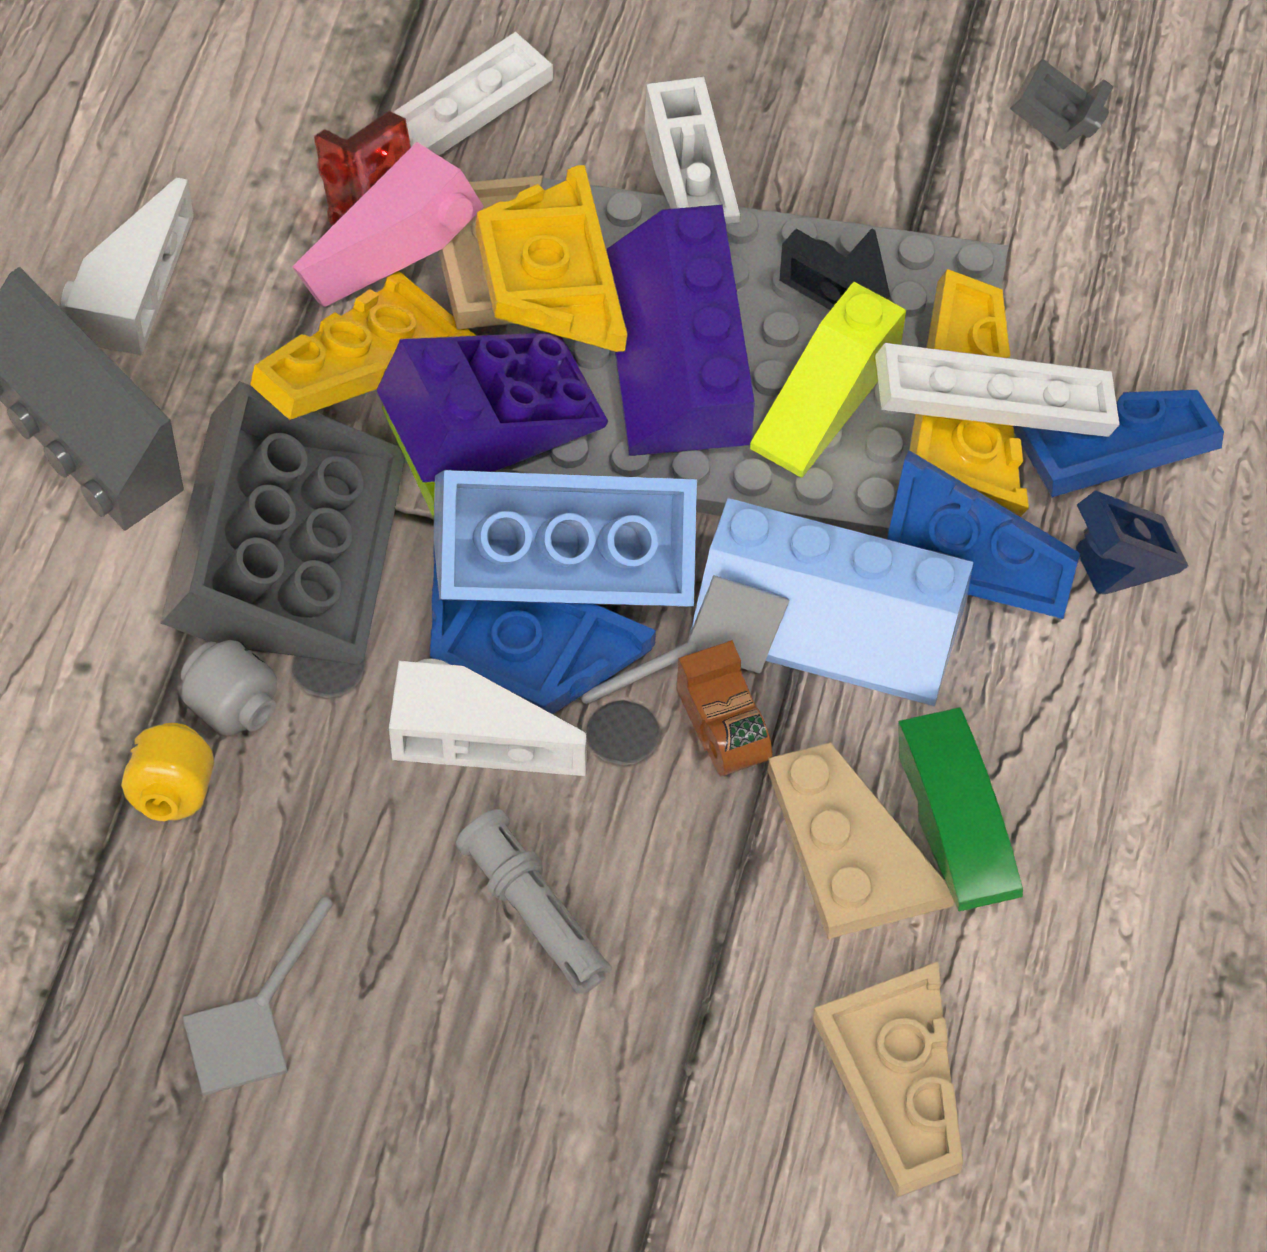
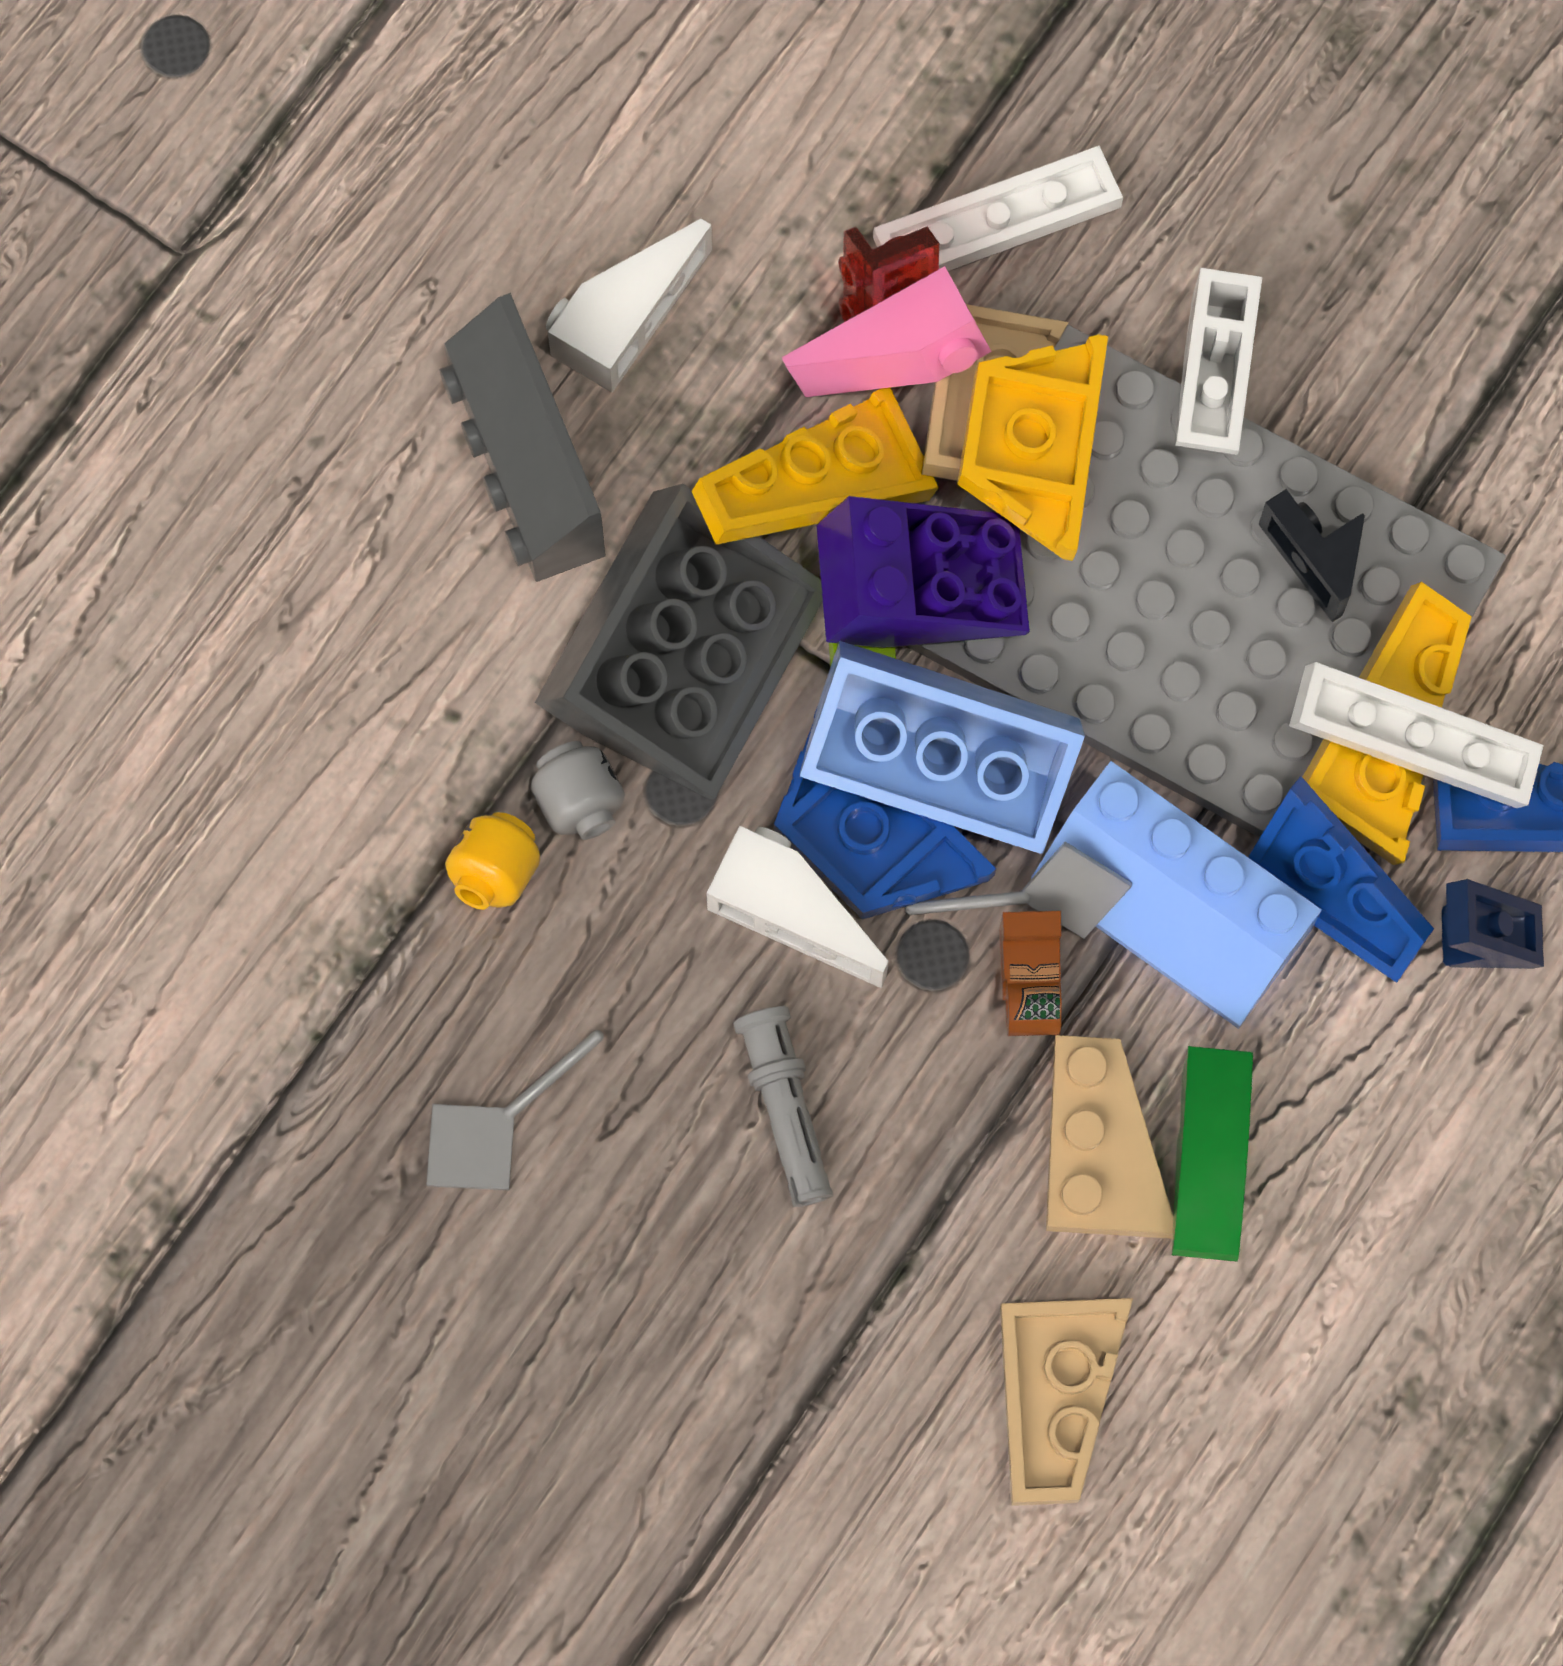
camera: 20 degrees right, 15 degrees up
(685, 344) = (1133, 562): dark purple slope -> none
(829, 379) = (1260, 662): neon yellow slope -> none

